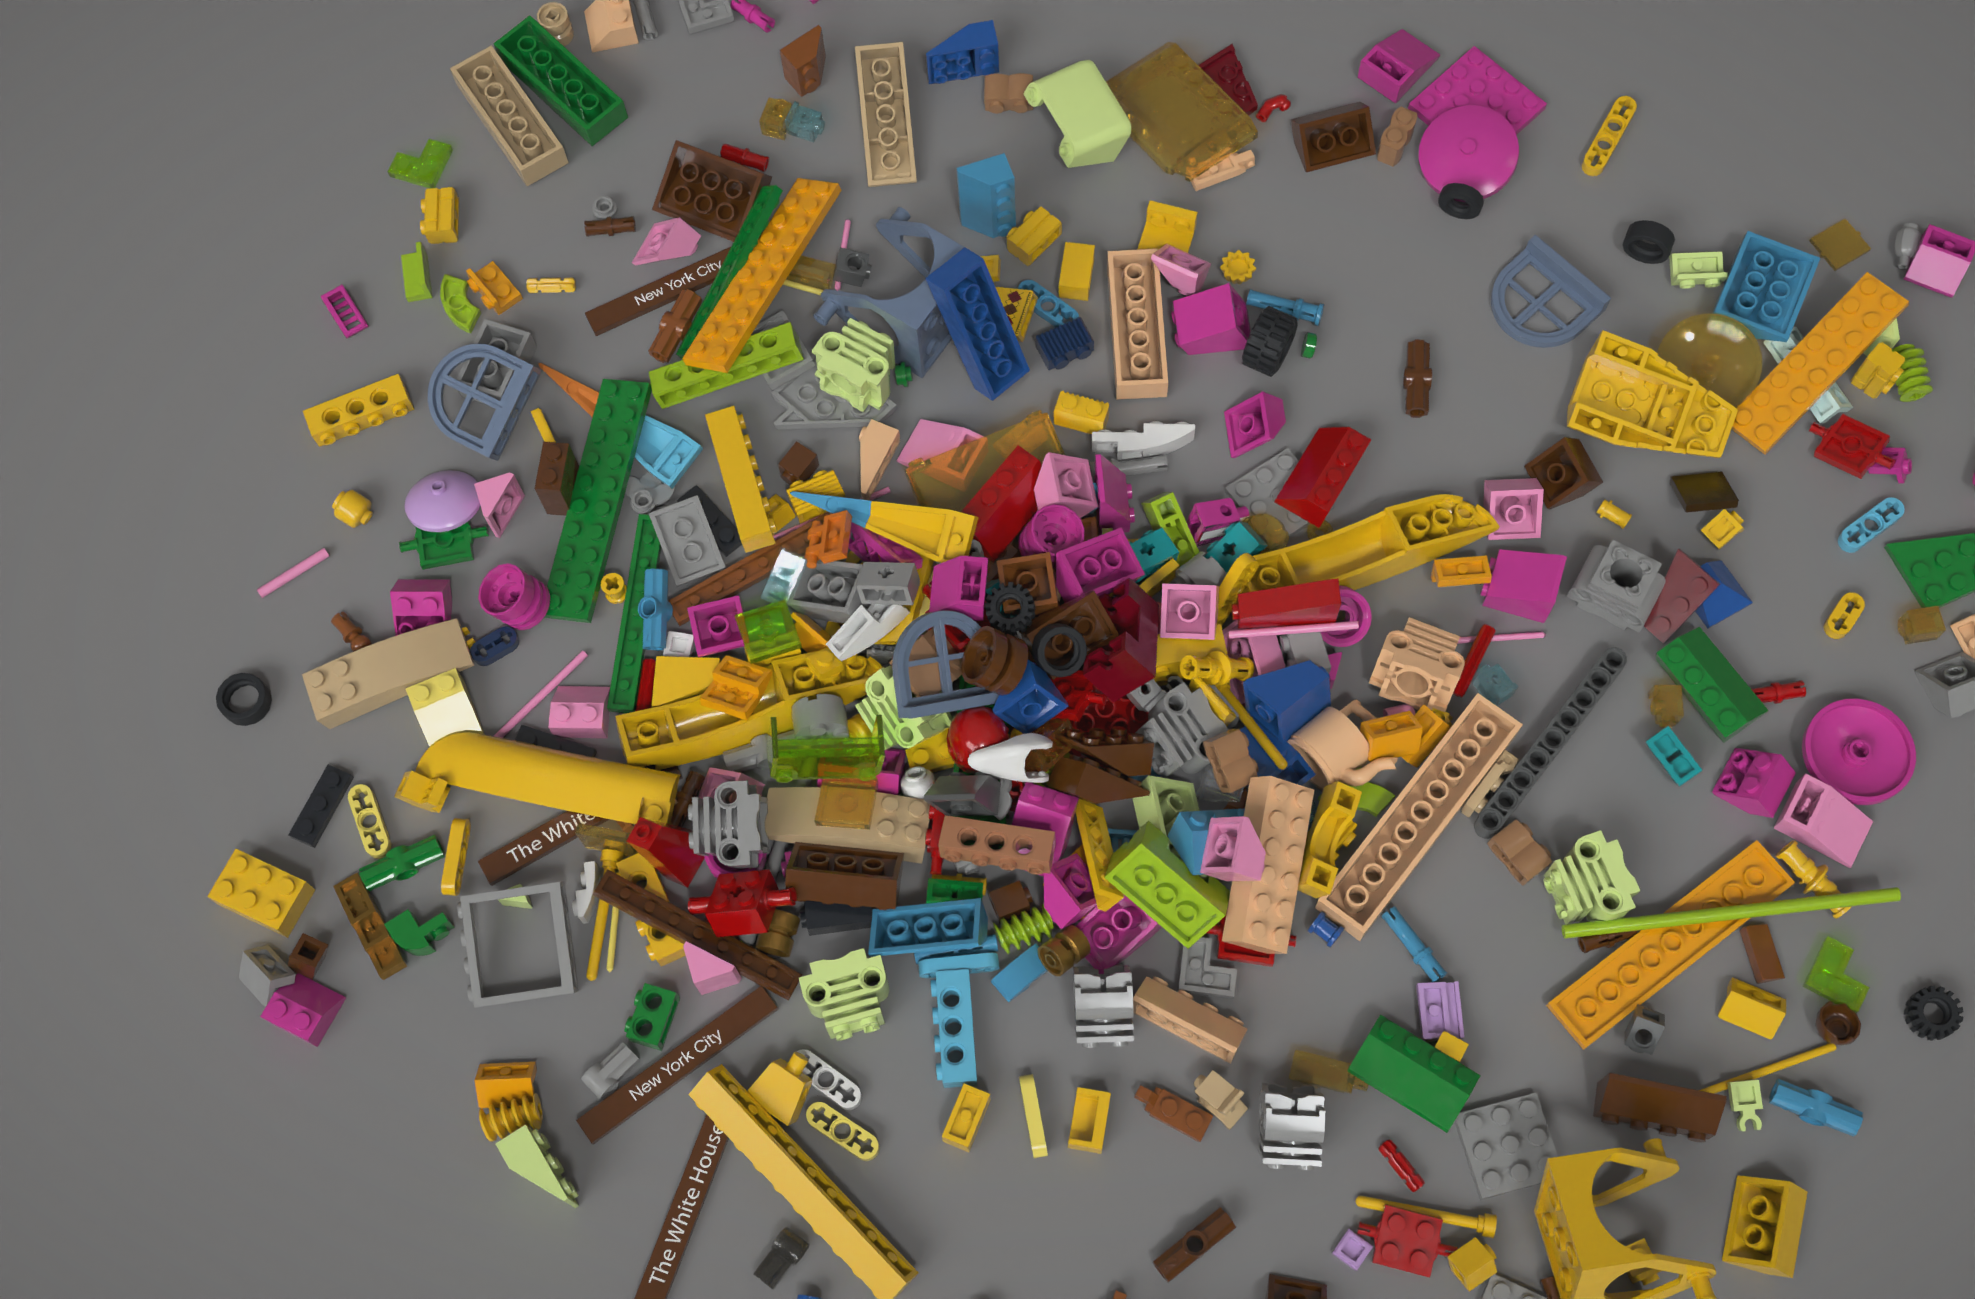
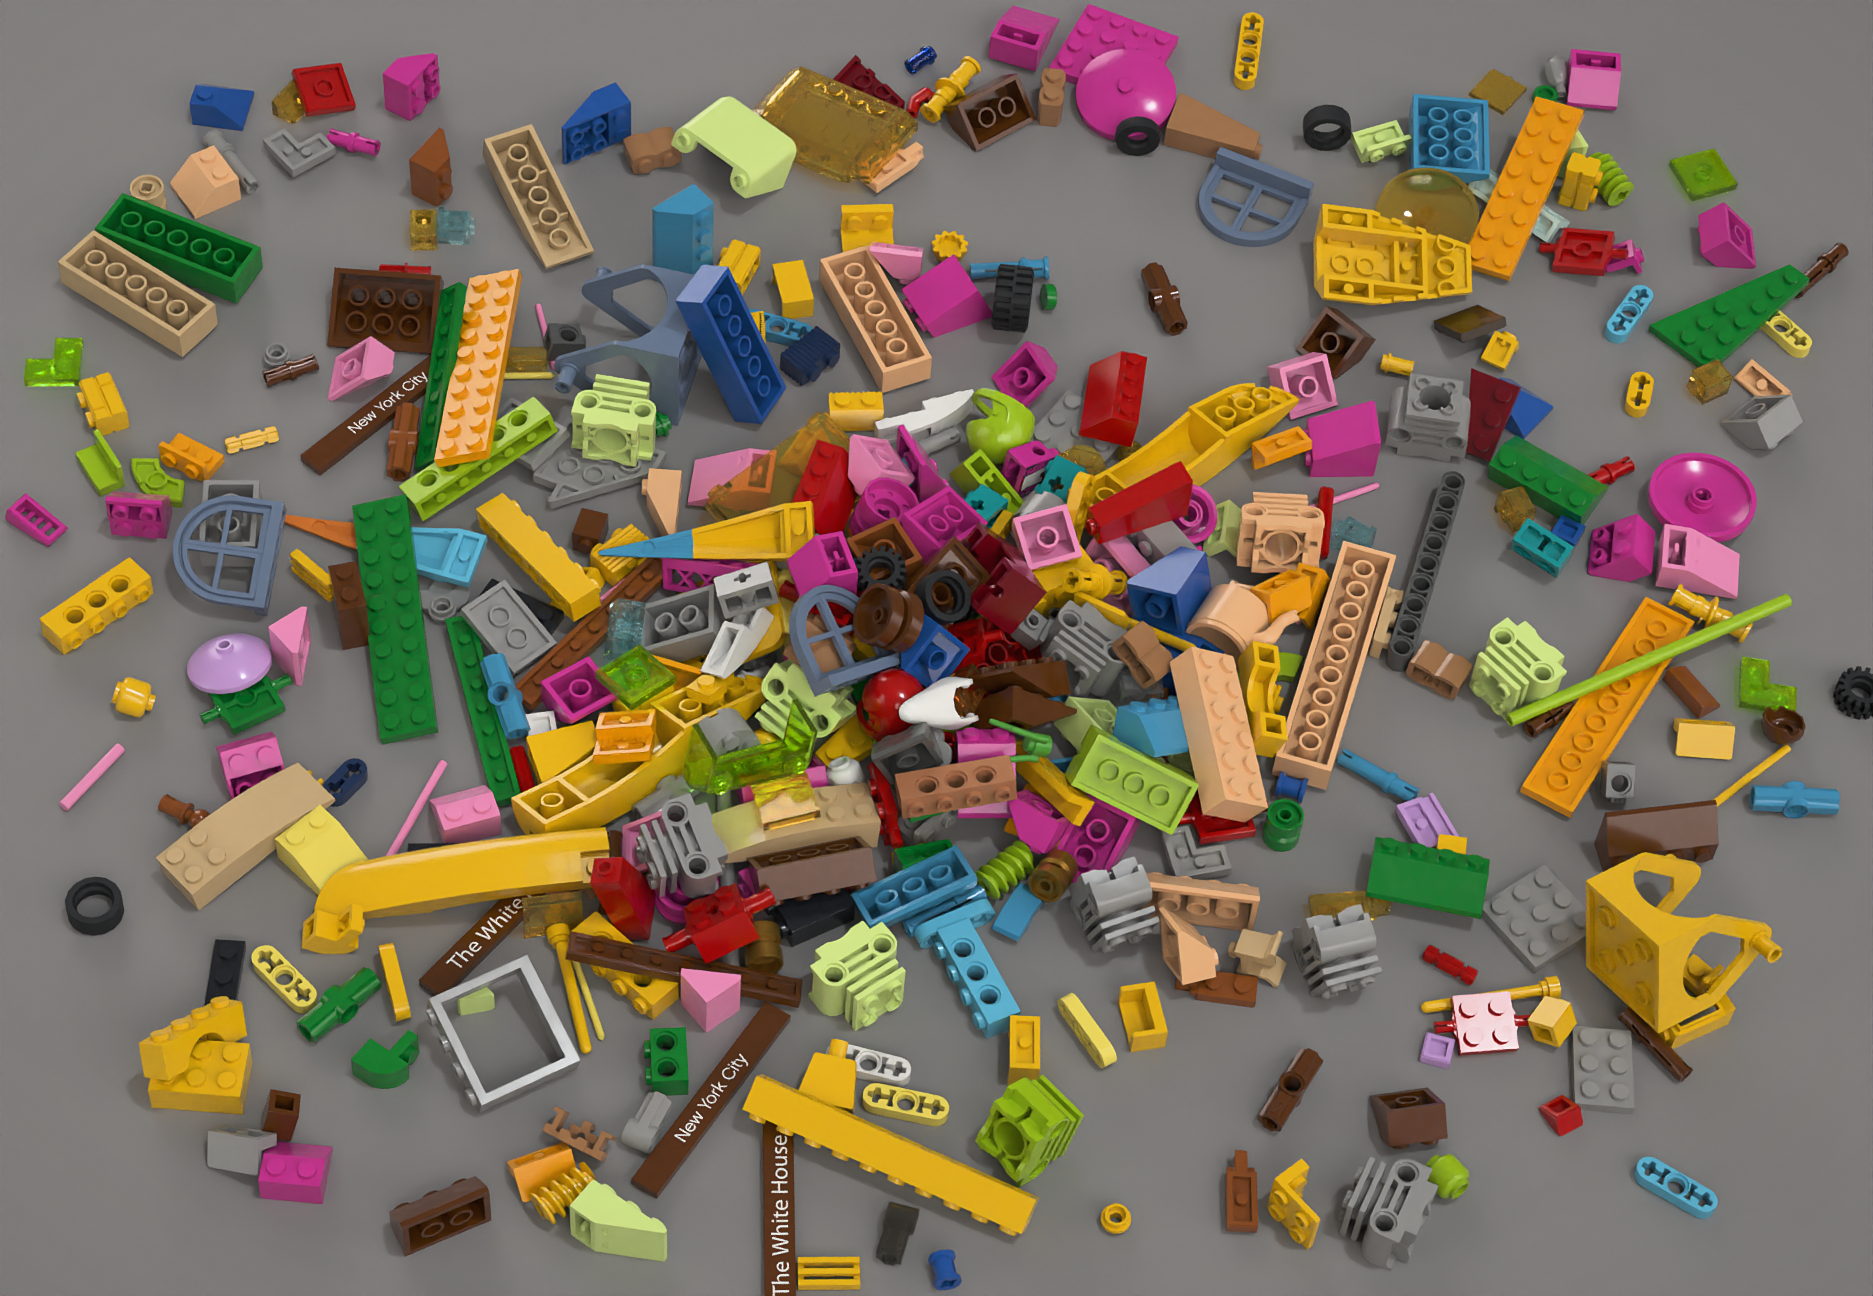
camera: 30 degrees left, 15 degrees down
(225, 873) = (169, 1049): none -> yellow arch
(370, 926) = (330, 1073): pearl gold slope -> none
(400, 1098) = (441, 1215): none -> reddish brown slope
(425, 331) = (139, 514): none -> dark pink slope
(514, 597) = (352, 723): dark pink wheel -> none
(540, 1066) = (590, 1145): none -> medium nougat piece
(585, 900) = (549, 970): white slope -> none
(614, 588) = (445, 690): yellow bush -> none
(685, 1266) = (828, 1268): none -> yellow tile
(833, 536) = (667, 572): orange plate -> none
(933, 1205) = (1029, 1128): none -> lime piece
(1010, 900) = (980, 848): reddish brown brick -> none
(1089, 823) = (1034, 743): none -> bright green plant
(1154, 1071) = (1185, 949): none -> light nougat slope
(1205, 479) = (1005, 428): none -> lime piece
(1233, 850) = (1185, 719): bright pink slope -> none
(1292, 63) = (926, 56): none -> clear blue pin
(1293, 629) = (1150, 529): bright pink axle -> none
(1300, 968) = (1283, 825): none -> green wheel
(1305, 102) = (950, 88): none -> yellow piece
(1370, 645) = (1226, 530): none -> yellowish green panel
(1531, 212) = (1205, 130): none -> medium nougat slope
(1708, 744) = (1568, 530): none -> blue plate
(1746, 1097) = (1733, 812): yellowish green plate -> none
(1765, 1225) = (1795, 906): yellow slope -> none
(1885, 264) = (1545, 92): none -> green tile

